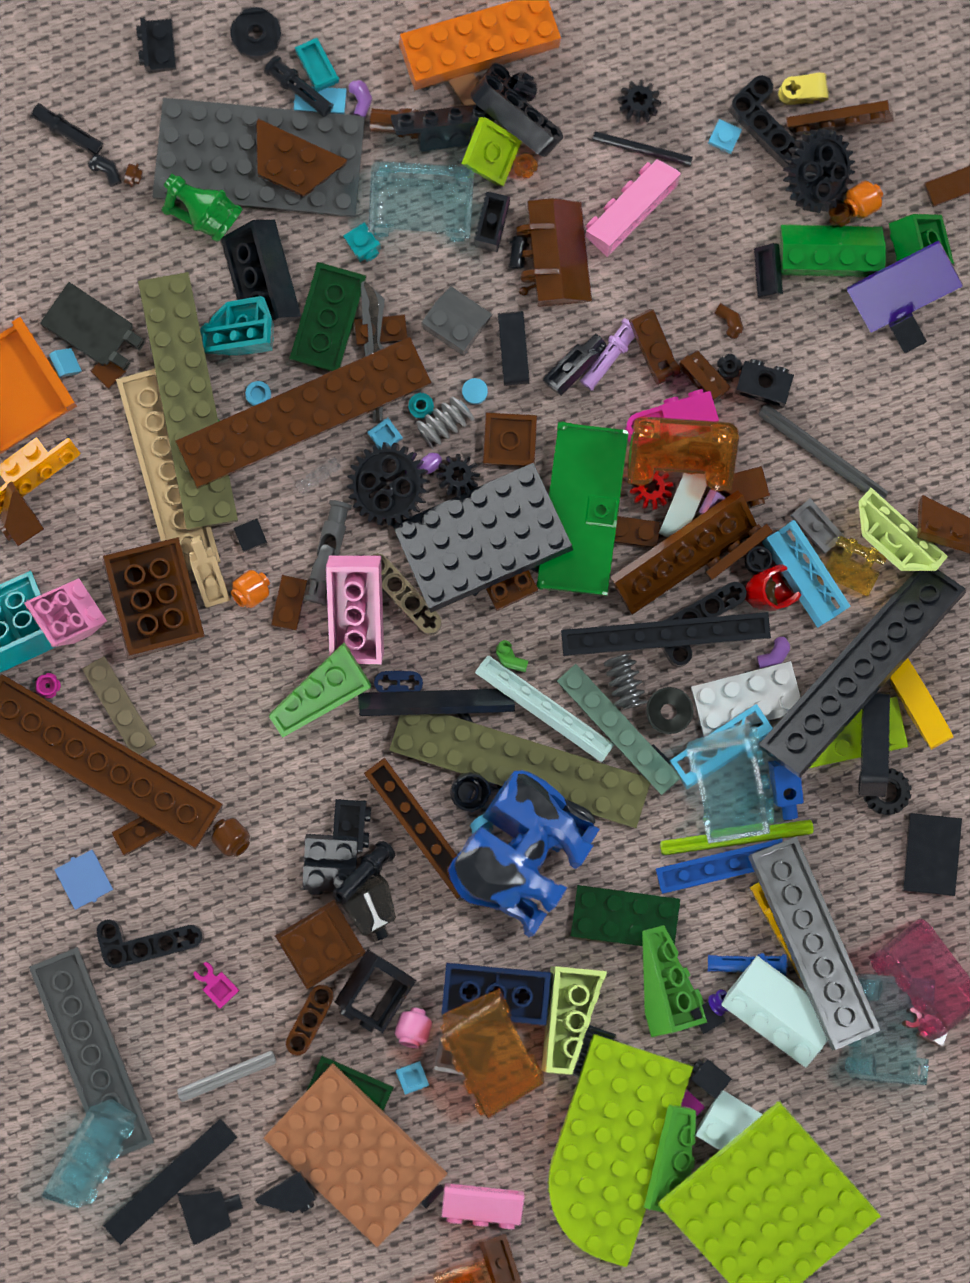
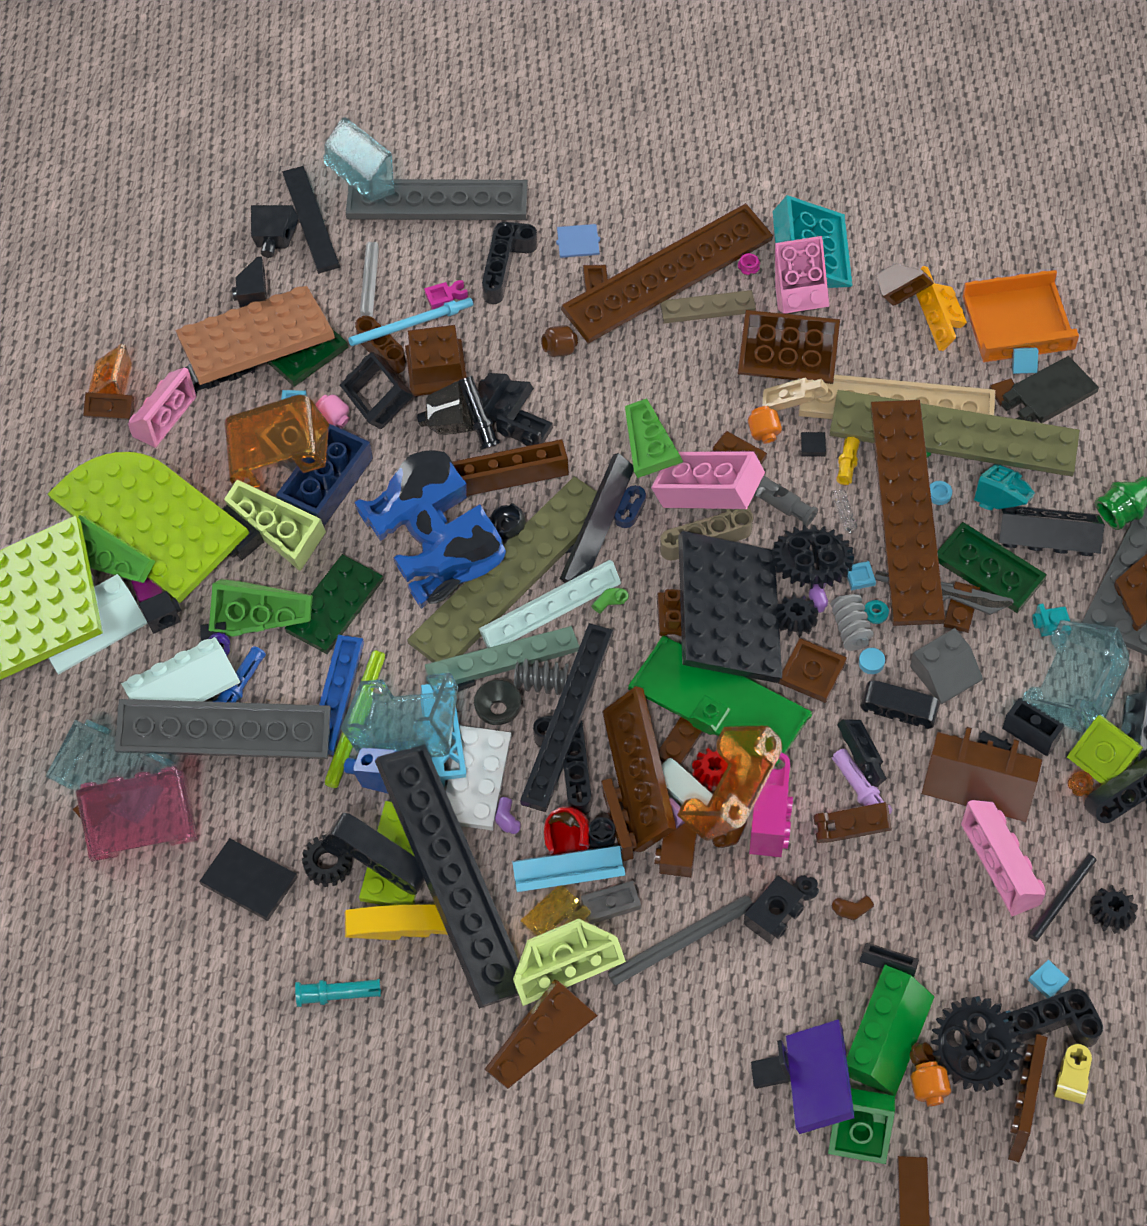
camera: 120 degrees right, 25 degrees down
(234, 970) = (449, 309): none -> medium azure bar
(258, 493) = (848, 461): none -> yellow pin
(704, 375) = (803, 855): reddish brown bracket -> none

